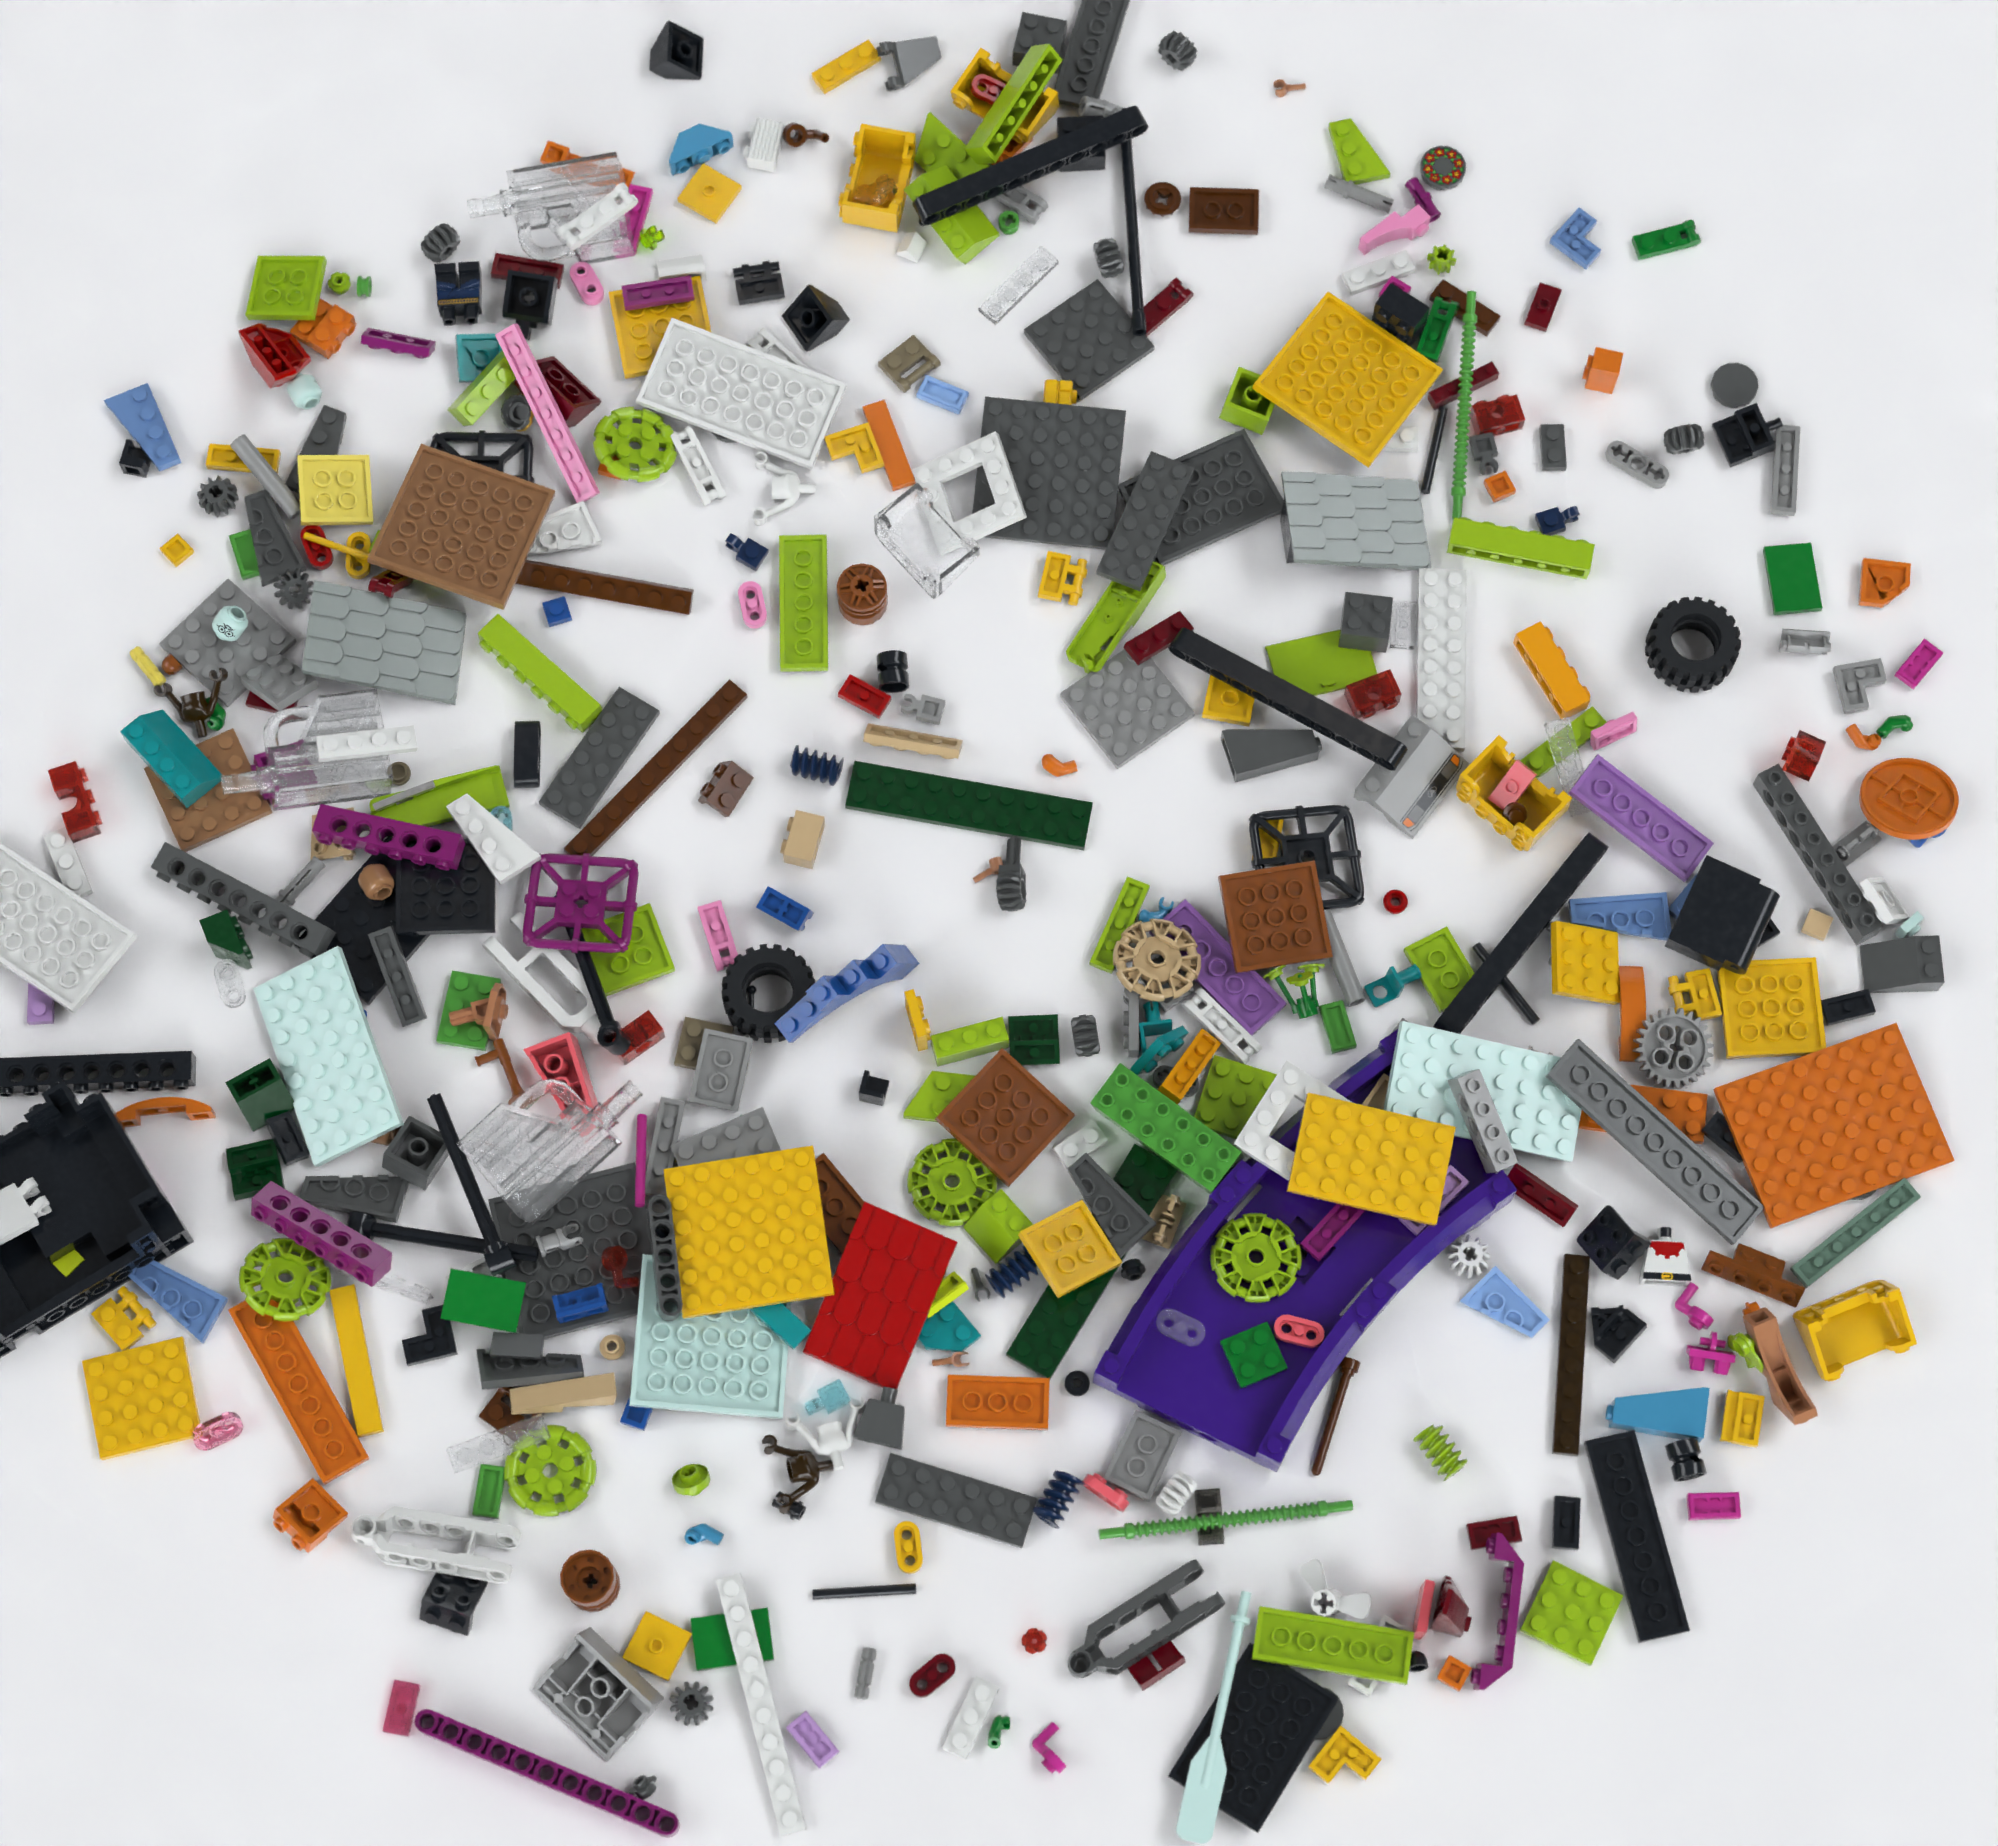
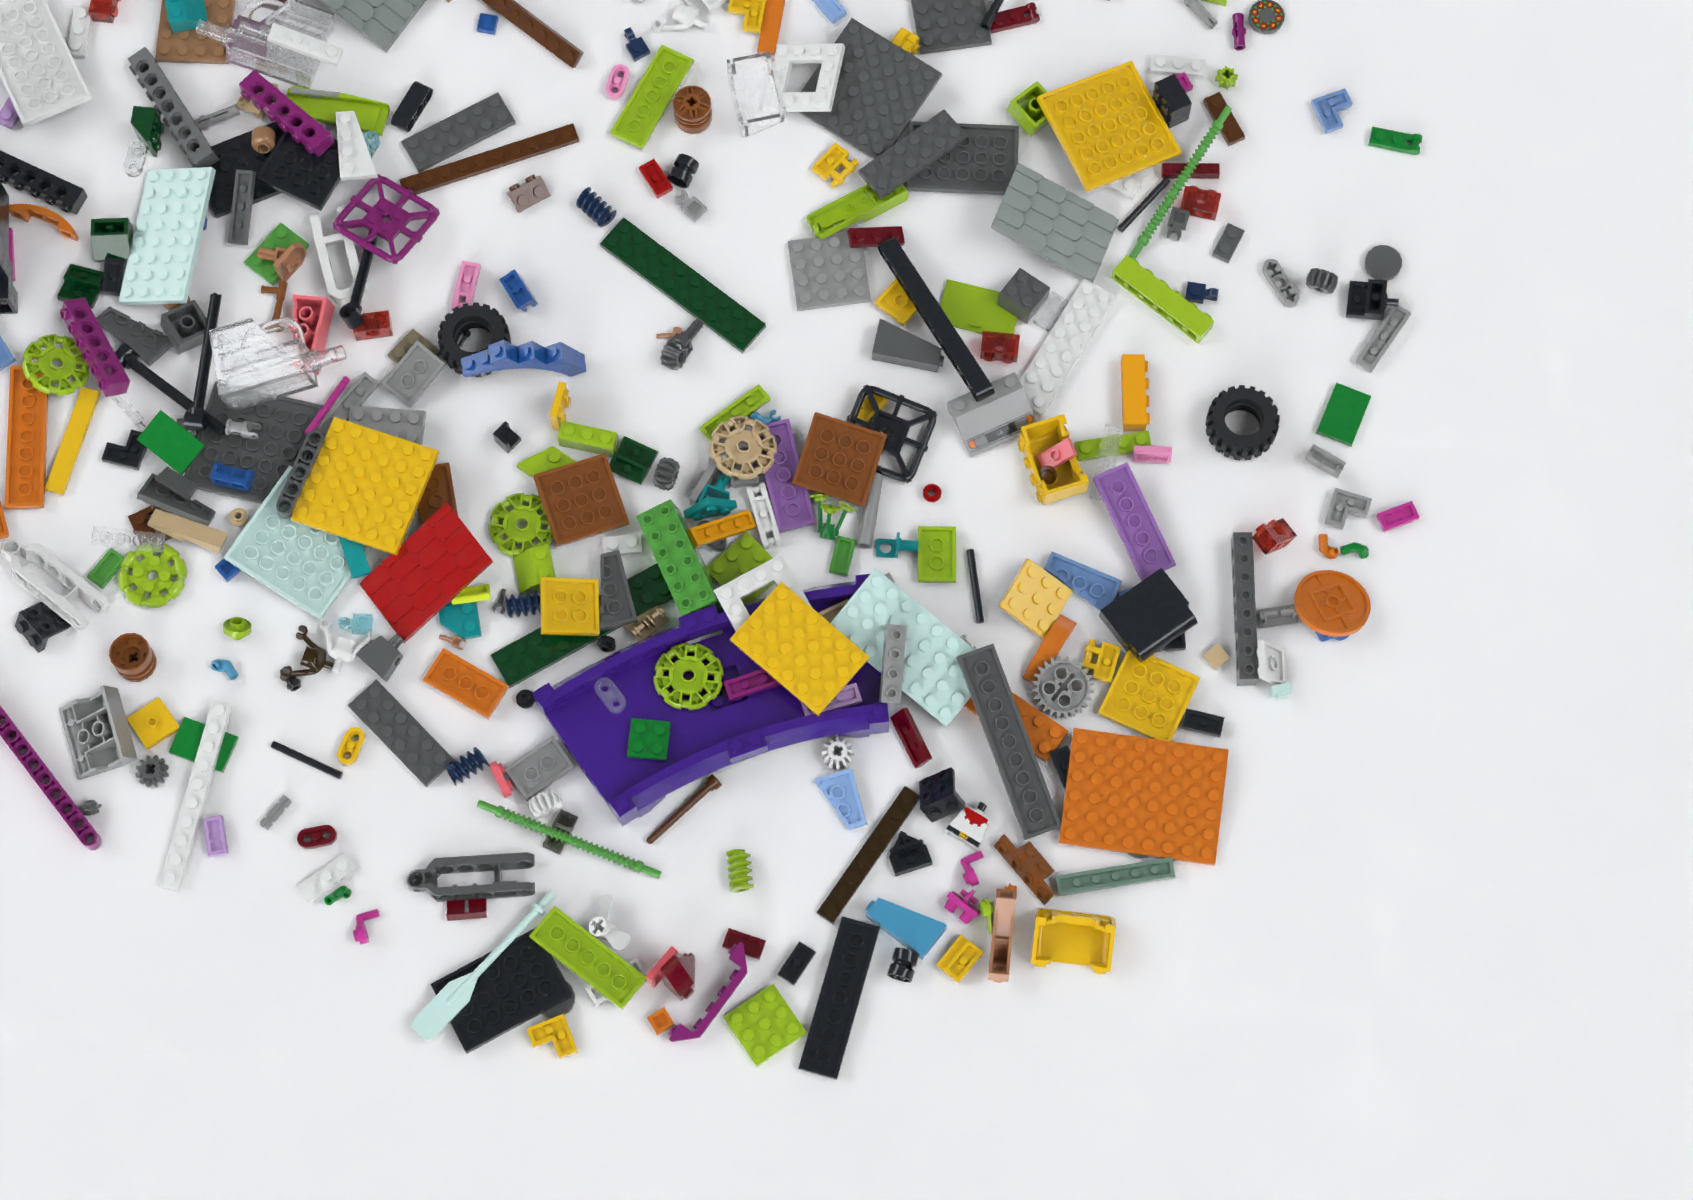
camera: 30 degrees right, 0 degrees up
(401, 773) = (322, 78): dark tan plate -> none
(539, 673) = (451, 57): lime brick -> none
(615, 1260) = (272, 464): clear red plate -> none
(643, 961) = (407, 276): lime plate -> none
(803, 839) = (558, 251): tan brick -> none
(915, 741) = (669, 223): tan plate -> none
(1031, 1634) = (393, 847): clear red plate -> none
(1056, 767) = (756, 289): orange arm -> none
(1298, 1332) = (688, 740): coral plate -> none
(1394, 227) = (1219, 44): bright pink slope -> none
(1418, 1662) = (640, 1000): black hinge -> none
(1437, 329) = (1194, 123): green plate -> none
(1499, 486) = (1173, 250): orange plate -> none
(1522, 935) = (1003, 558): black beam -> none
(1543, 307) = (1279, 144): dark red plate -> none
(1602, 370) = (1292, 206): orange brick -> none
(1713, 1506) = (904, 1006): dark pink plate -> none
(1882, 581) = (1406, 448): orange plate -> none
(1903, 965) = (1259, 714): dark grey slope -> none

